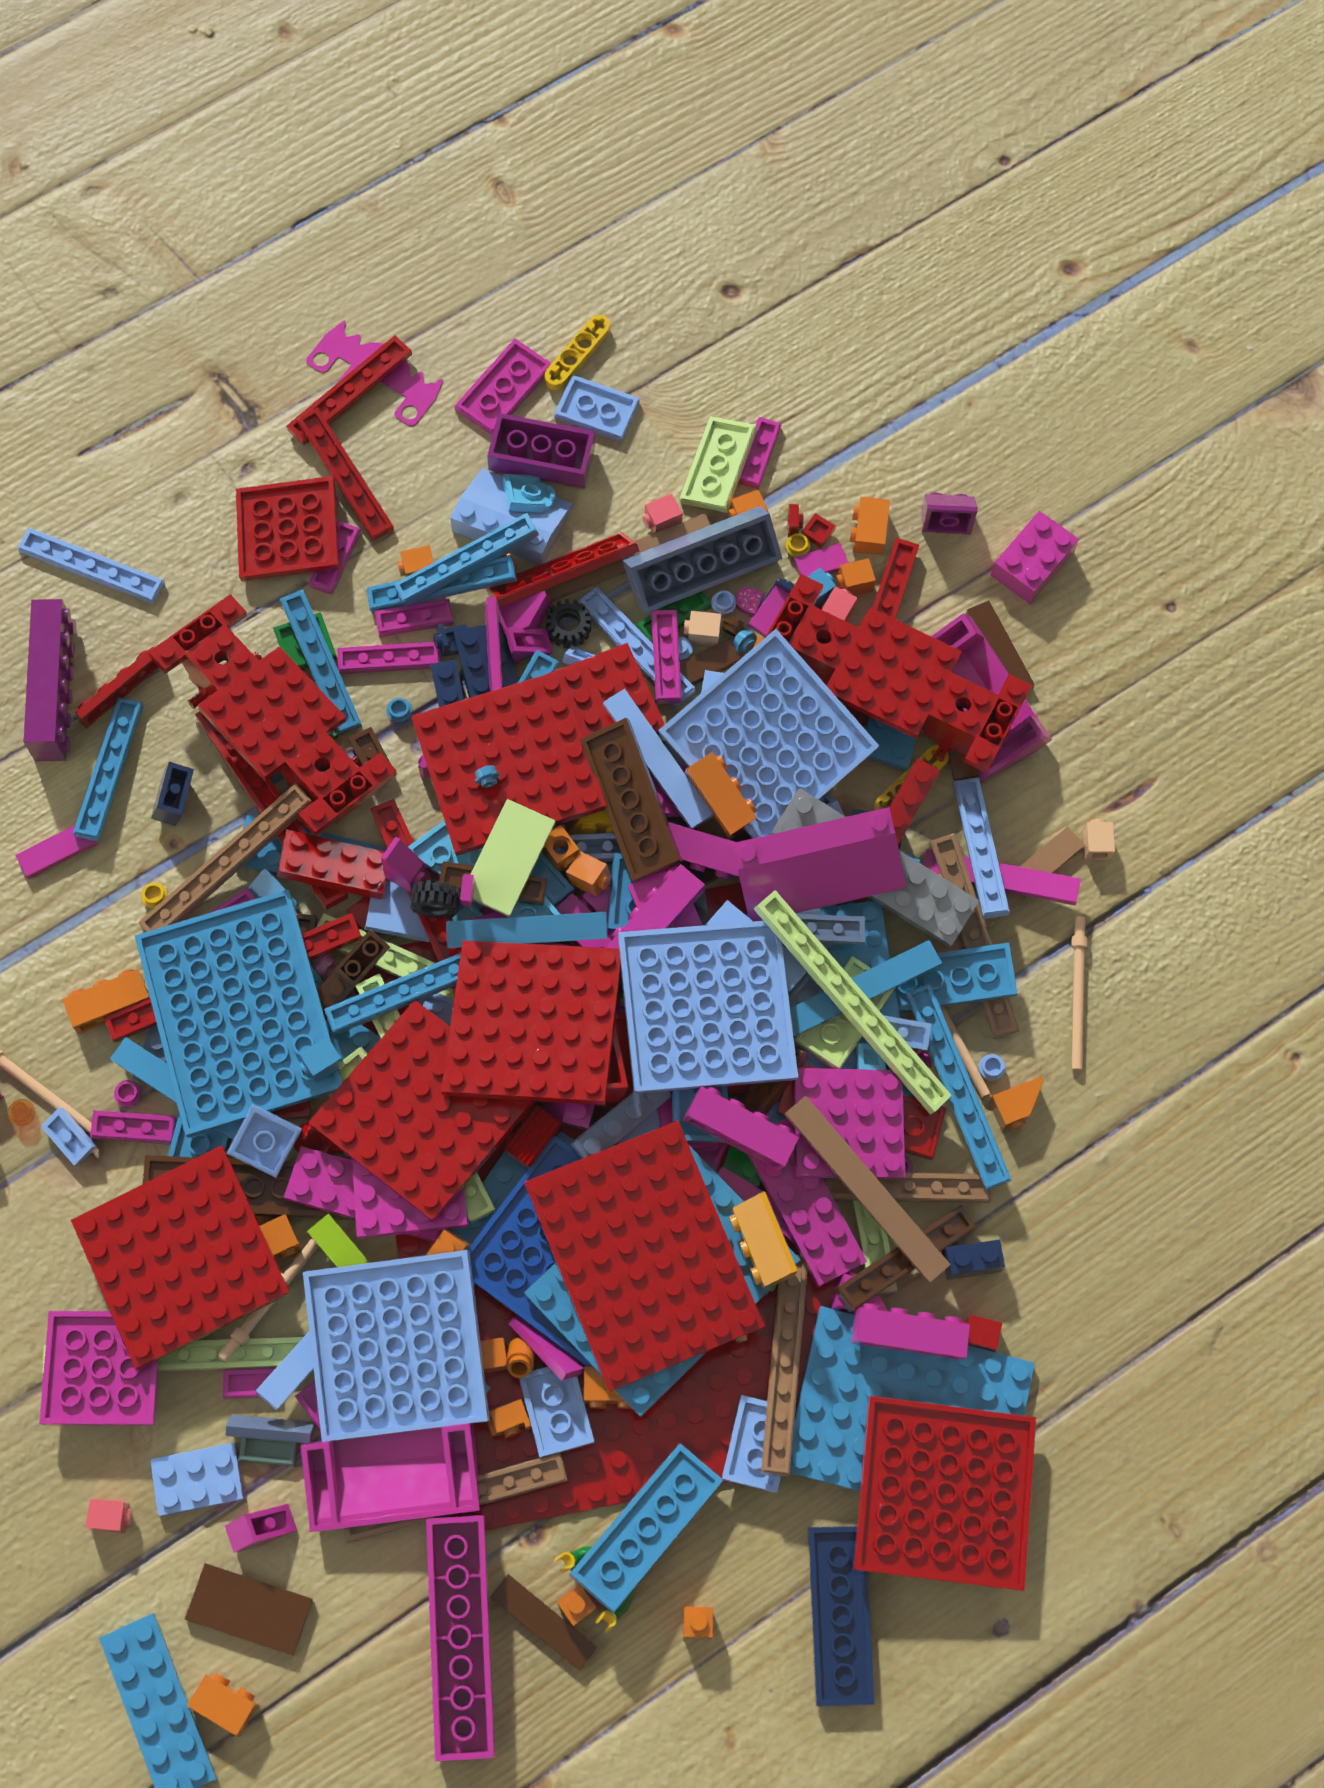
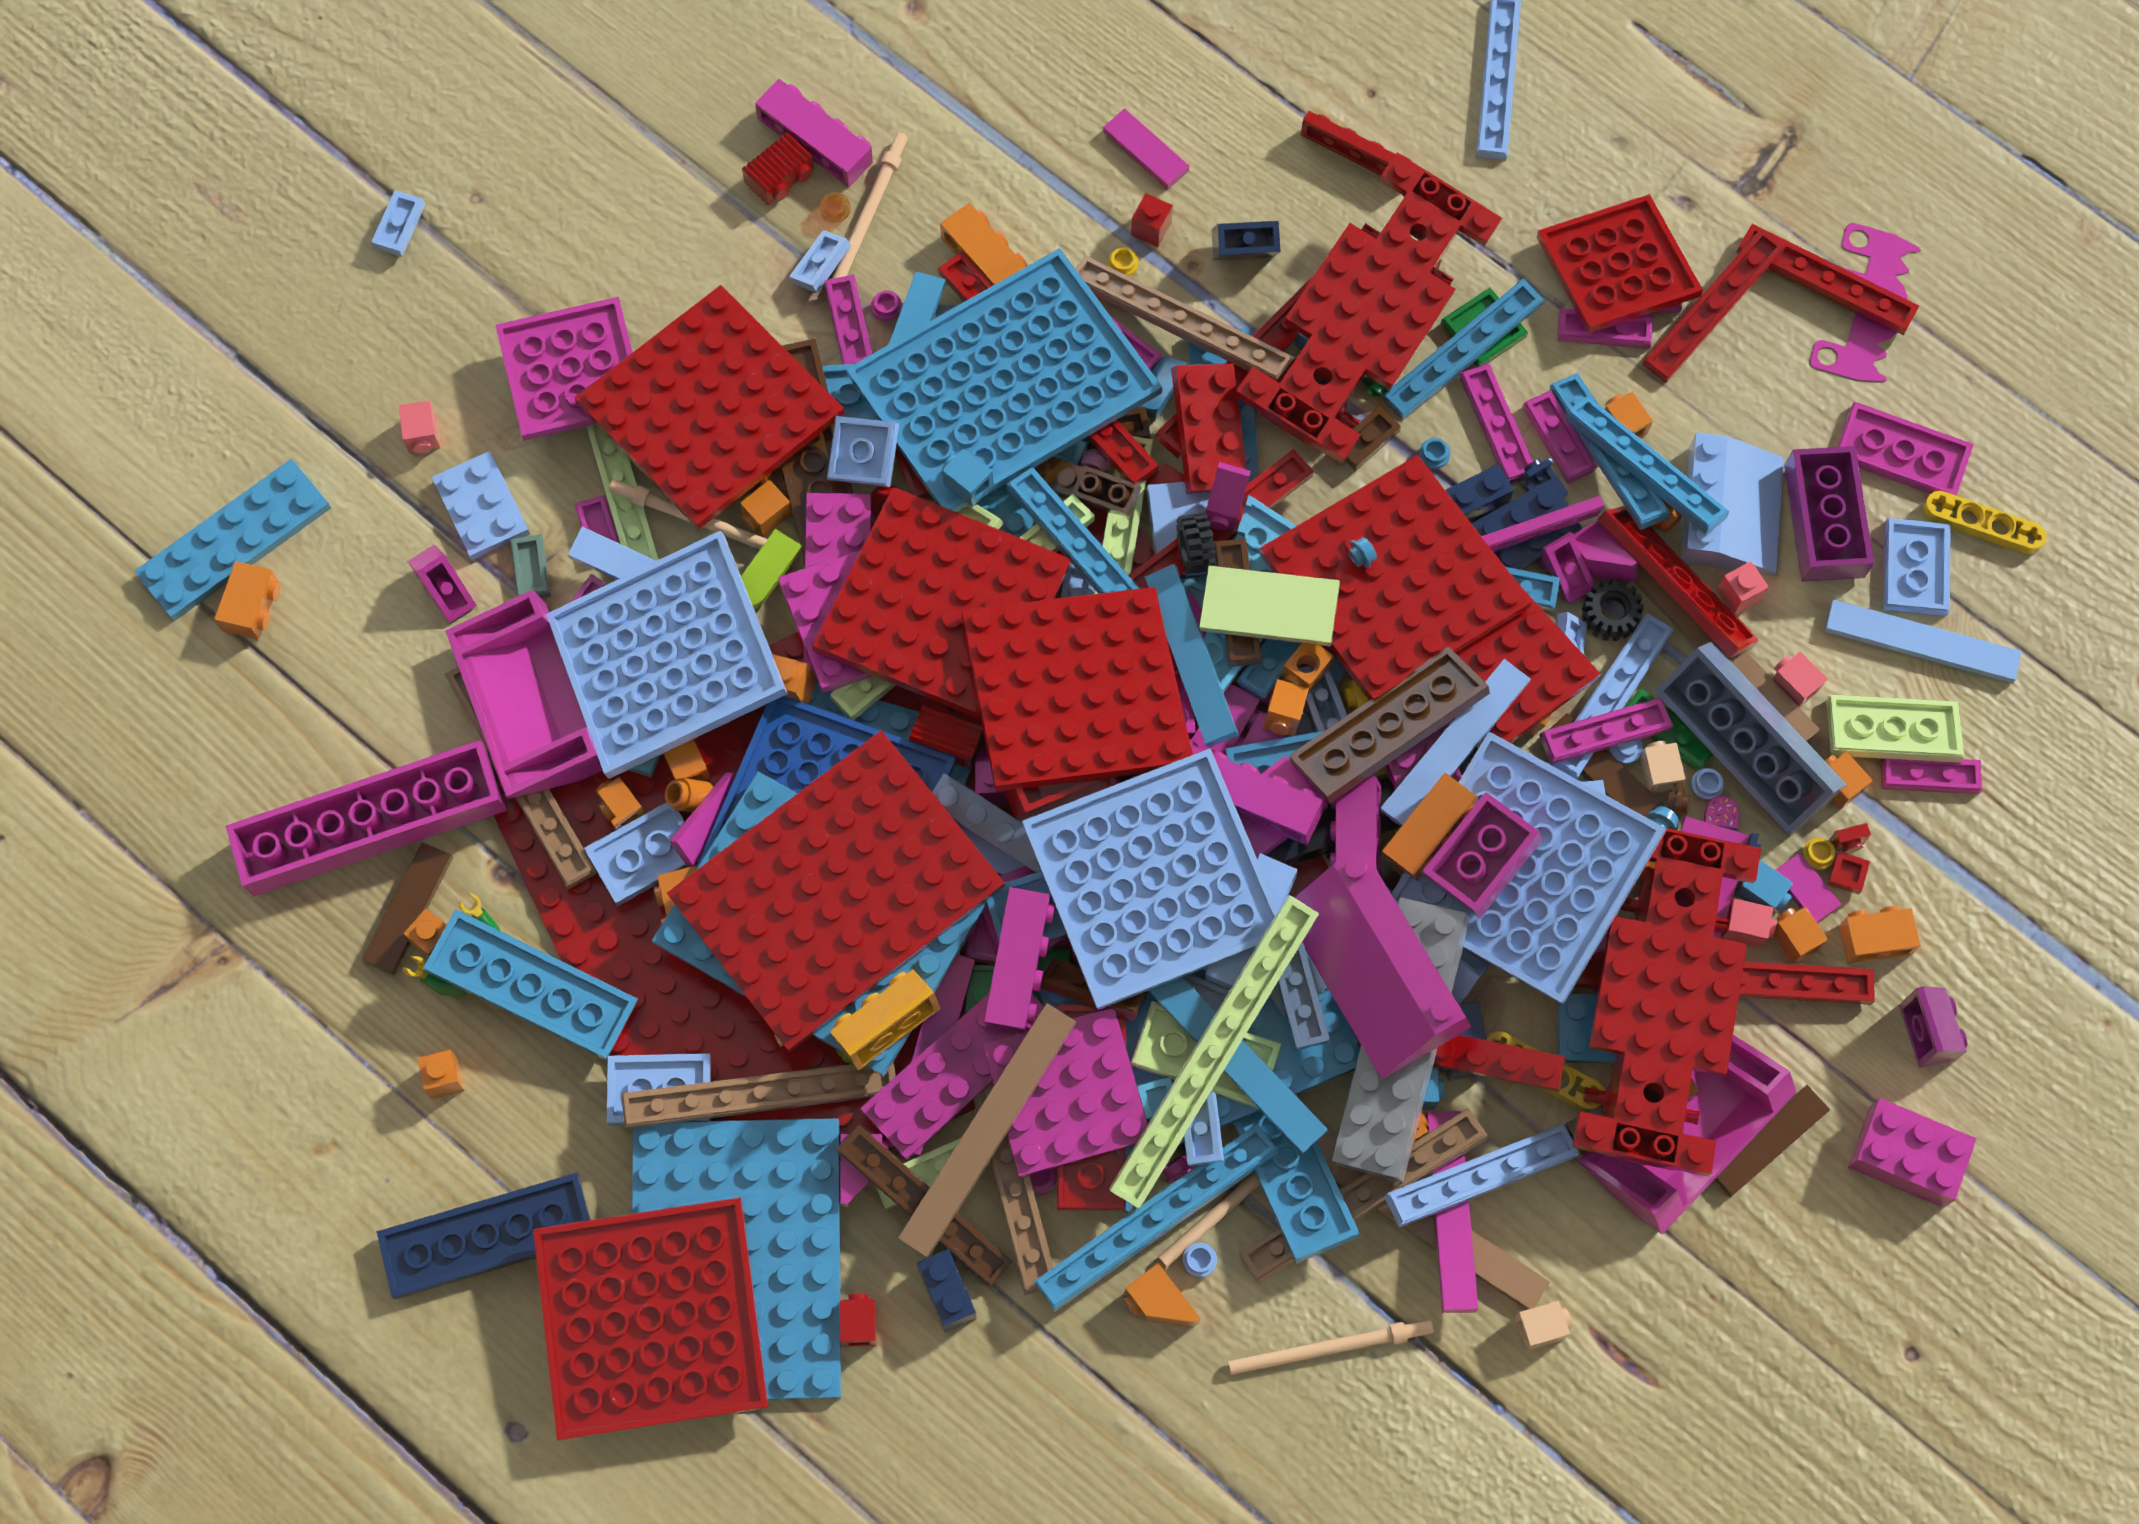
camera: 75 degrees right, 0 degrees up
(49, 680) = (1338, 72): magenta brick -> none
(108, 769) = (1256, 169): dark azure tile -> none
(126, 861) = (1151, 220): none -> red brick
(249, 1609) = (354, 599): reddish brown tile -> none
(270, 1429) = (550, 559): sand blue tile -> none
(467, 890) = (1210, 567): dark pink tile -> none
(527, 493) = (1764, 515): medium azure tile -> none
(580, 528) = (1742, 588): none -> coral brick
(656, 424) = (1923, 641): none -> light blue tile
(757, 762) = (1483, 855): none -> dark pink brick
(910, 1333) = (828, 1227): dark pink brick -> none

